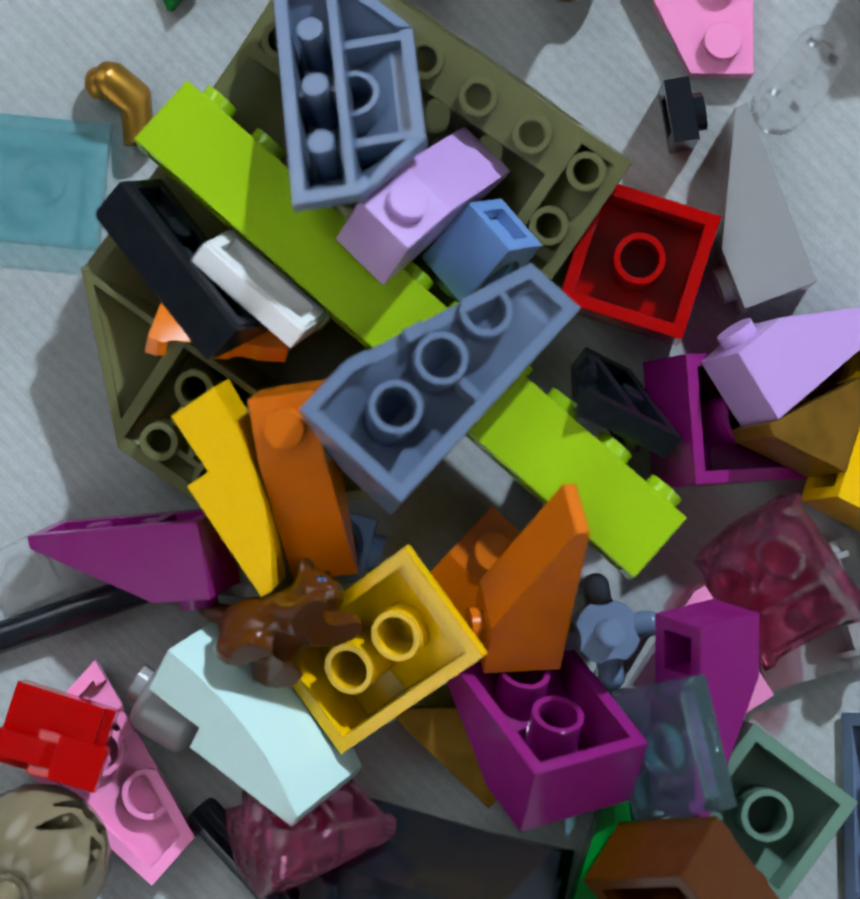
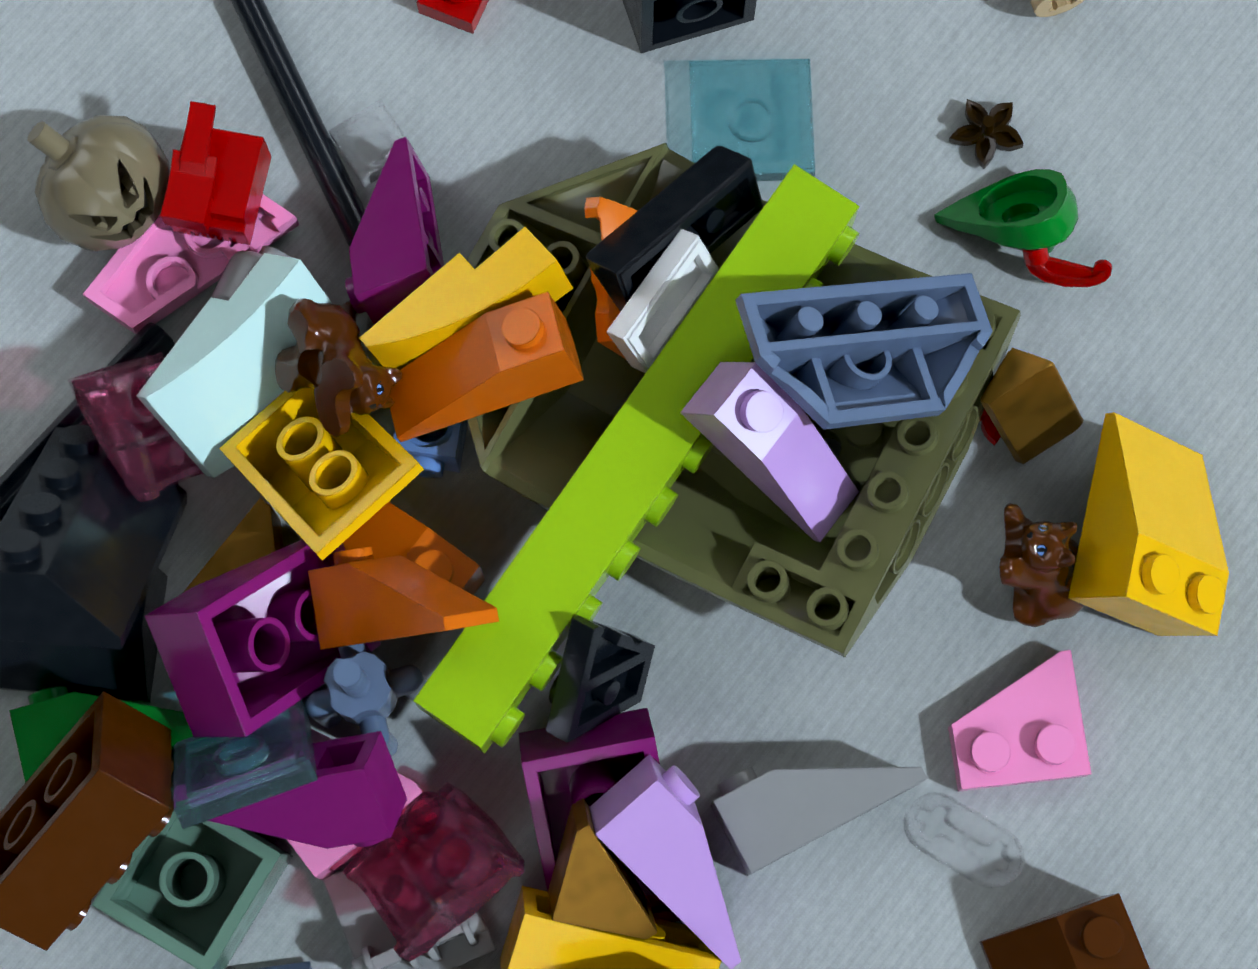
camera: 85 degrees right, 10 degrees down
(126, 92) = (853, 172): pearl gold arm -> none
(416, 396) = (576, 460): sand blue wedge -> none
(480, 248) = (732, 516): medium blue brick -> none
(641, 264) = (745, 689): red brick -> none
(682, 114) = (907, 719): black plate -> none

